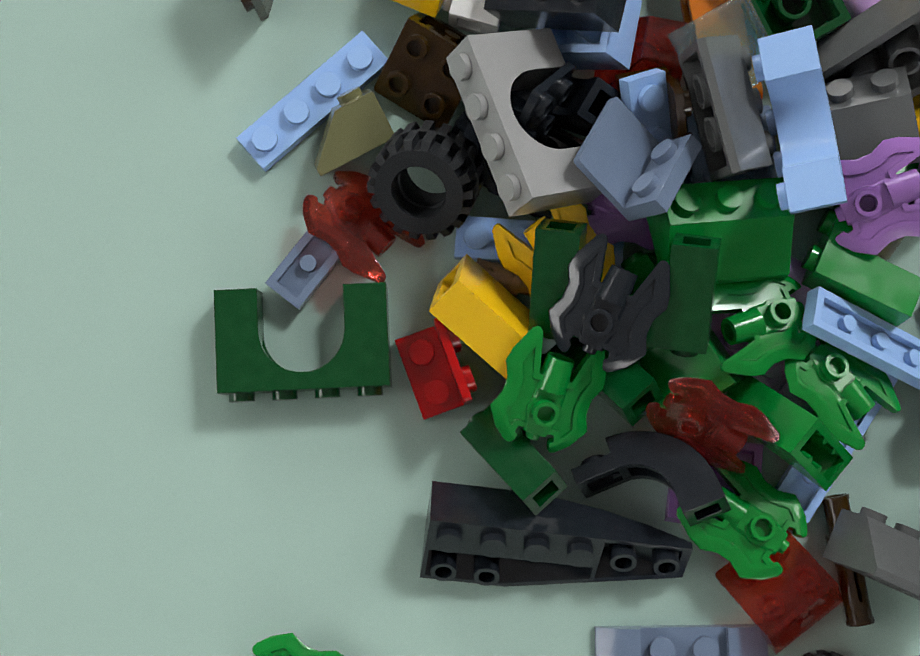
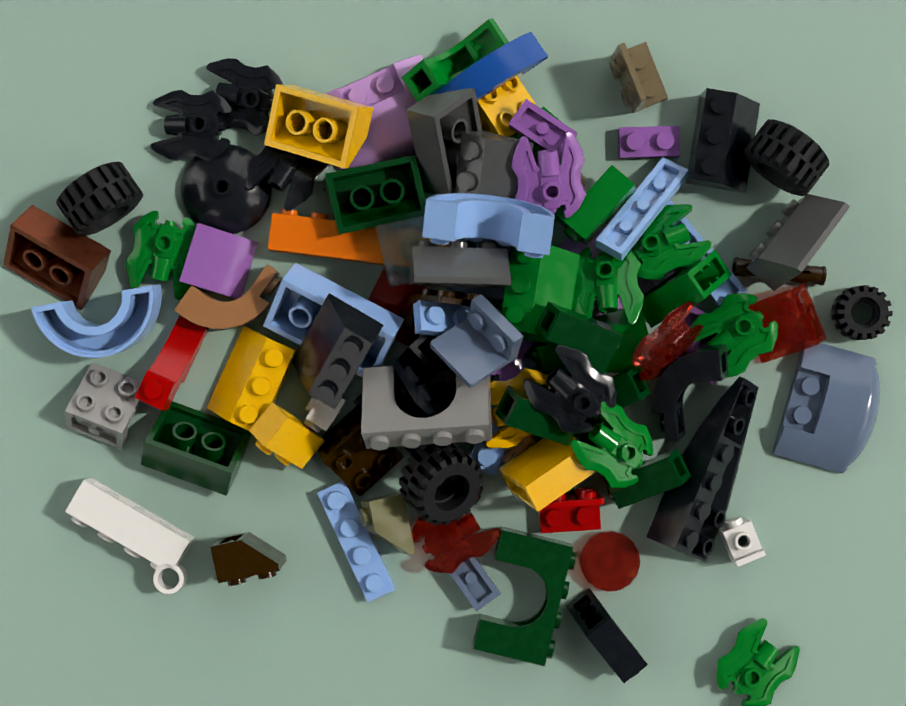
camera: 75 degrees left, 5 degrees up
(280, 469) = (606, 635): none -> black slope
(383, 445) = (609, 560): none -> clear red tile
(446, 617) = (730, 534): none -> white brick

